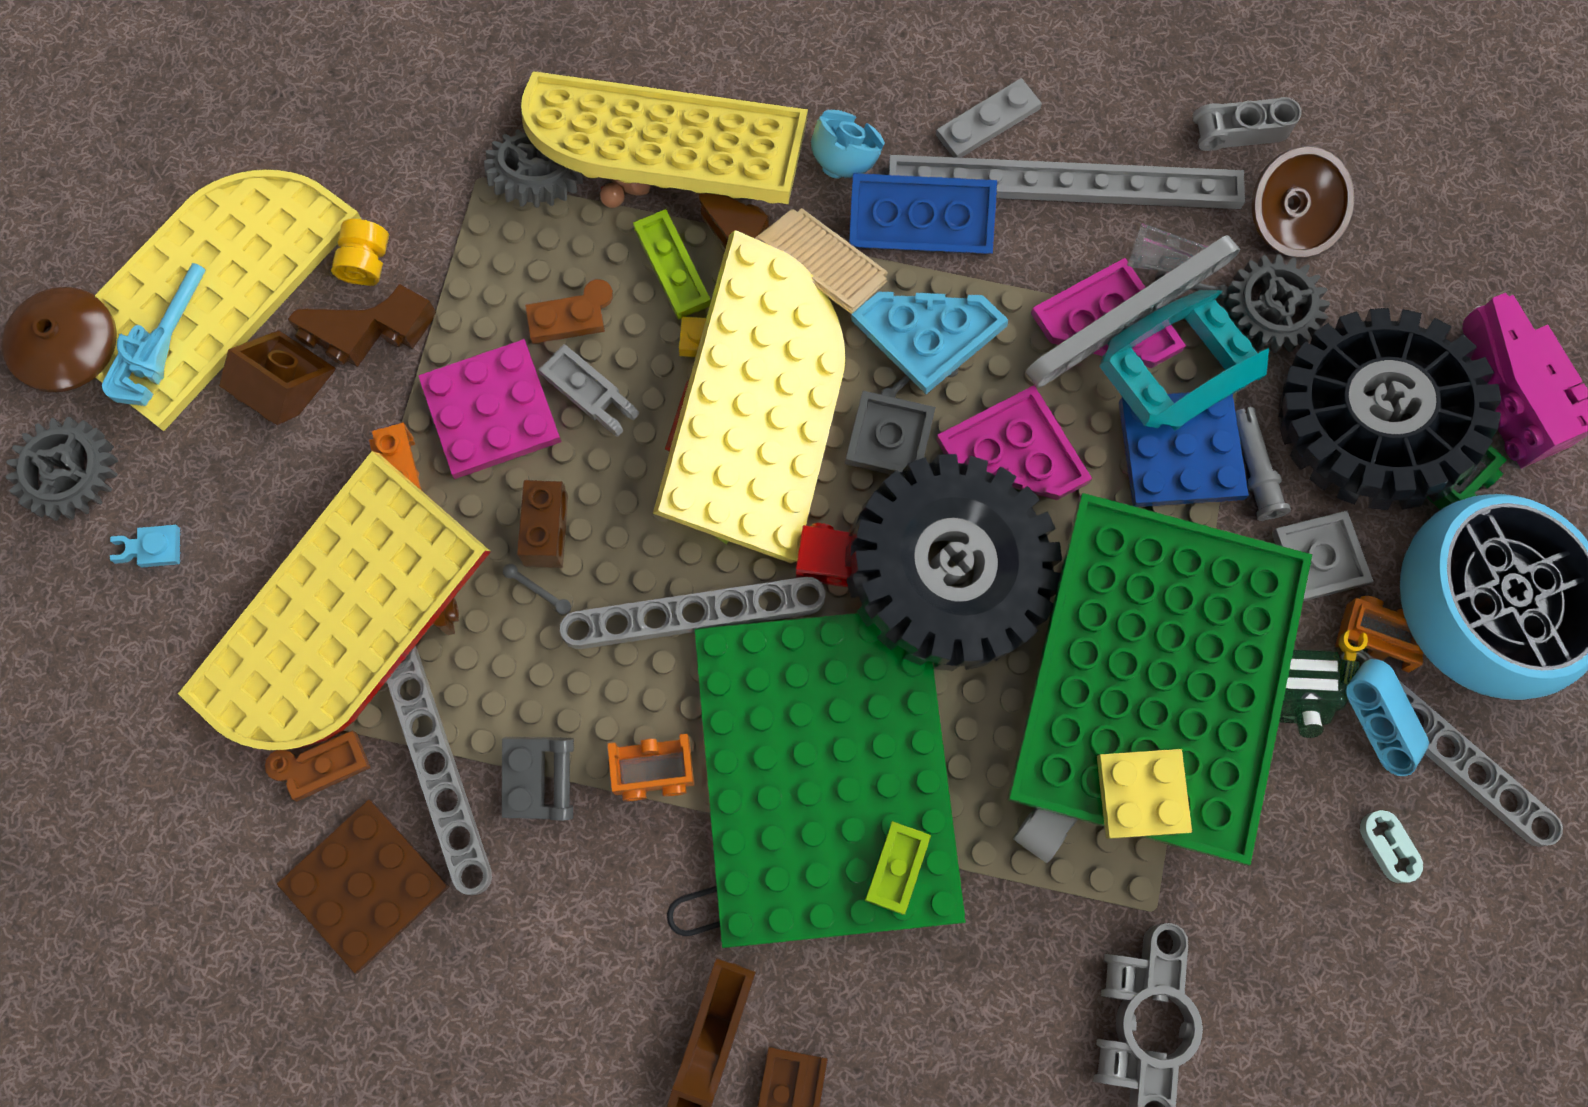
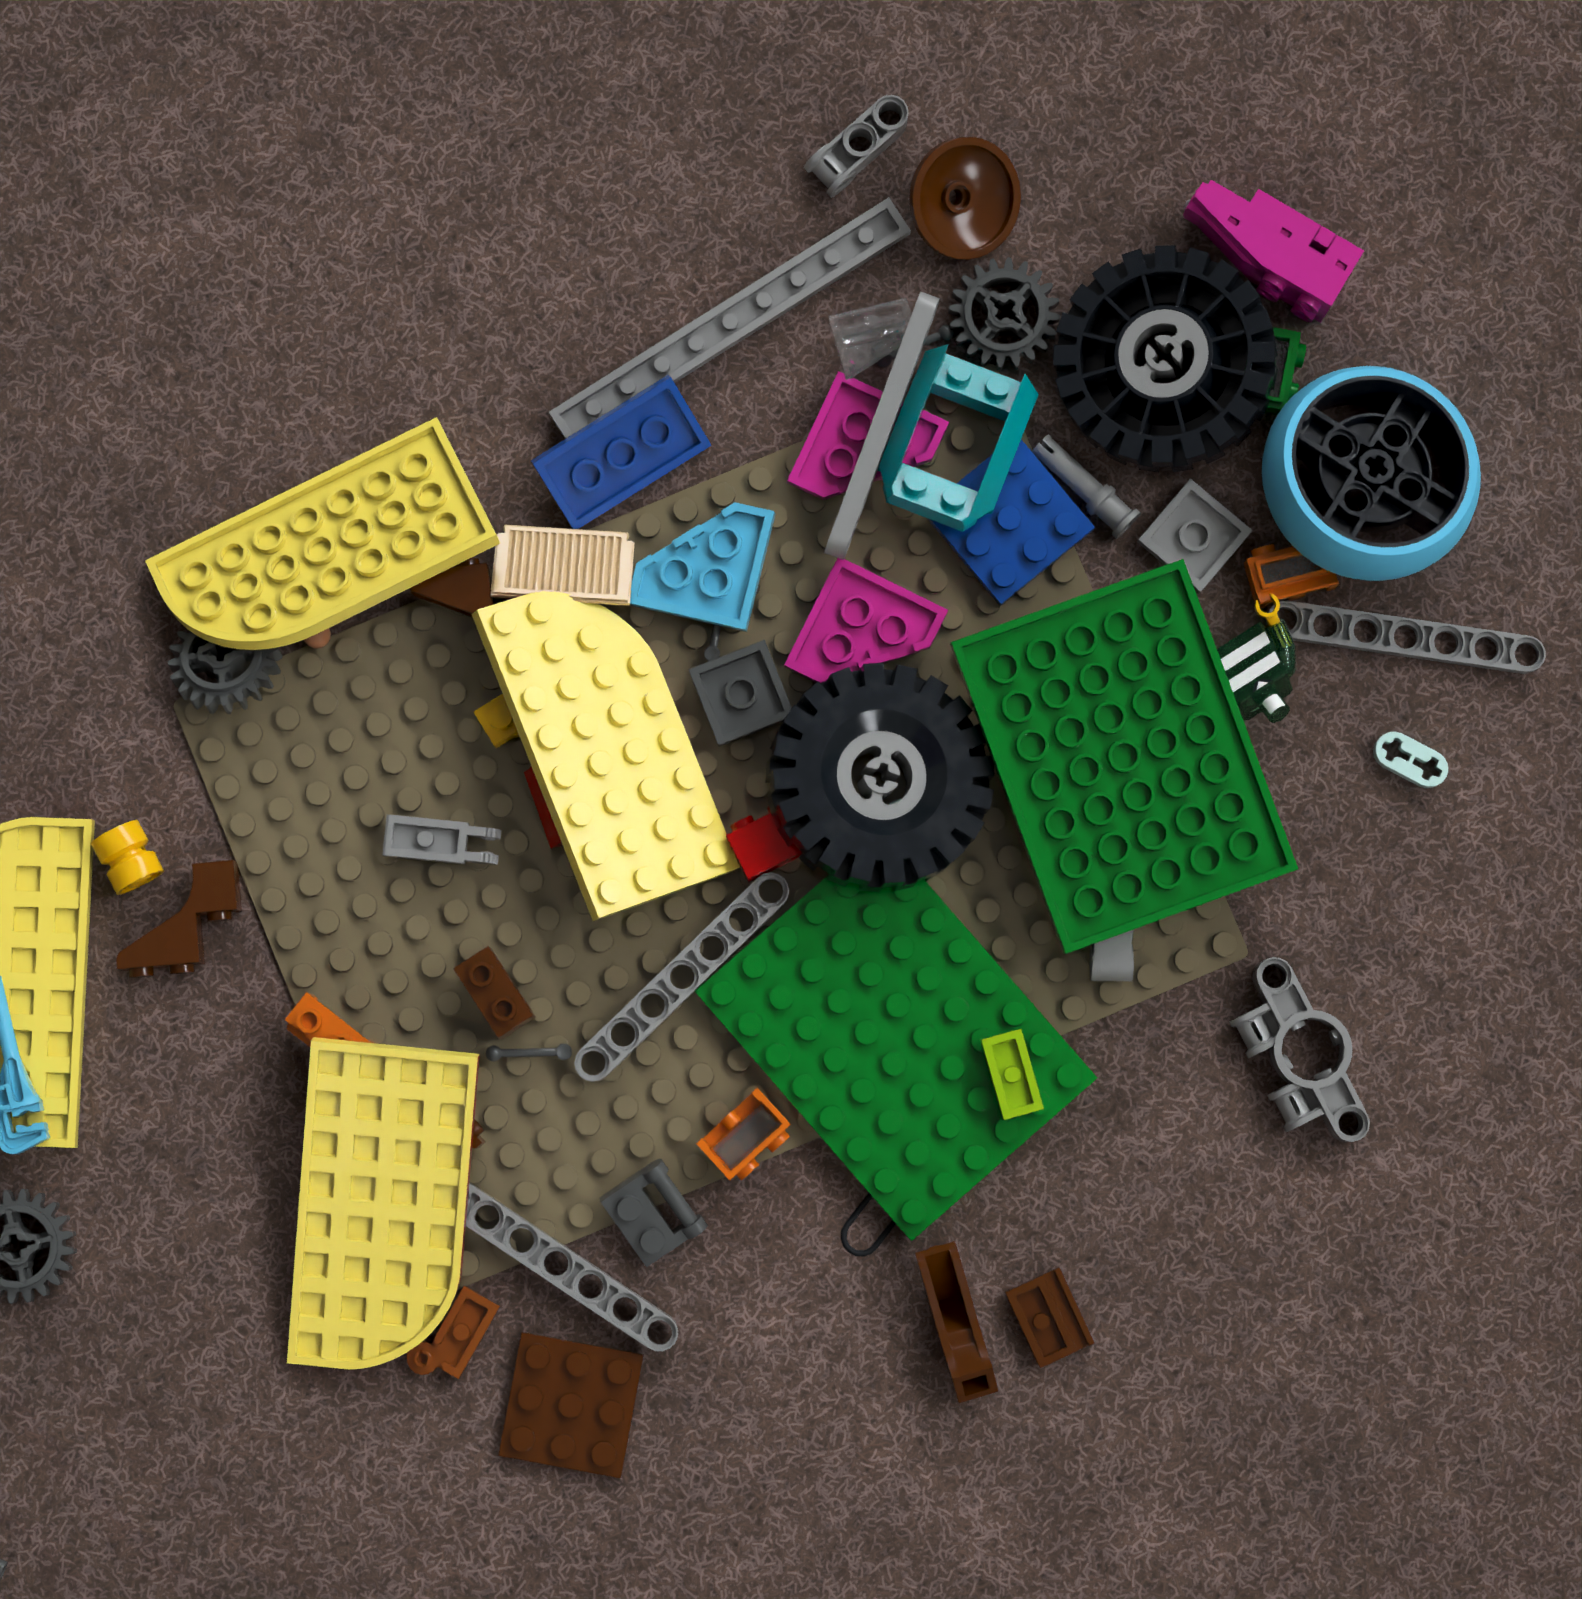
camera: 35 degrees left, 10 degrees up
(152, 547) = (155, 1255): medium azure plate -> none
(274, 376) = (142, 1026): reddish brown slope -> none
(489, 409) = (362, 920): dark pink plate -> none
(570, 315) = (369, 780): dark orange hinge -> none
(672, 264) = (426, 666): lime plate -> none
(843, 145) = (501, 432): medium azure cylinder -> none
(988, 119) = (613, 304): light grey plate -> none
(1144, 793) = (1173, 872): light yellow plate -> none
(1387, 717) = (1337, 652): medium azure beam -> none

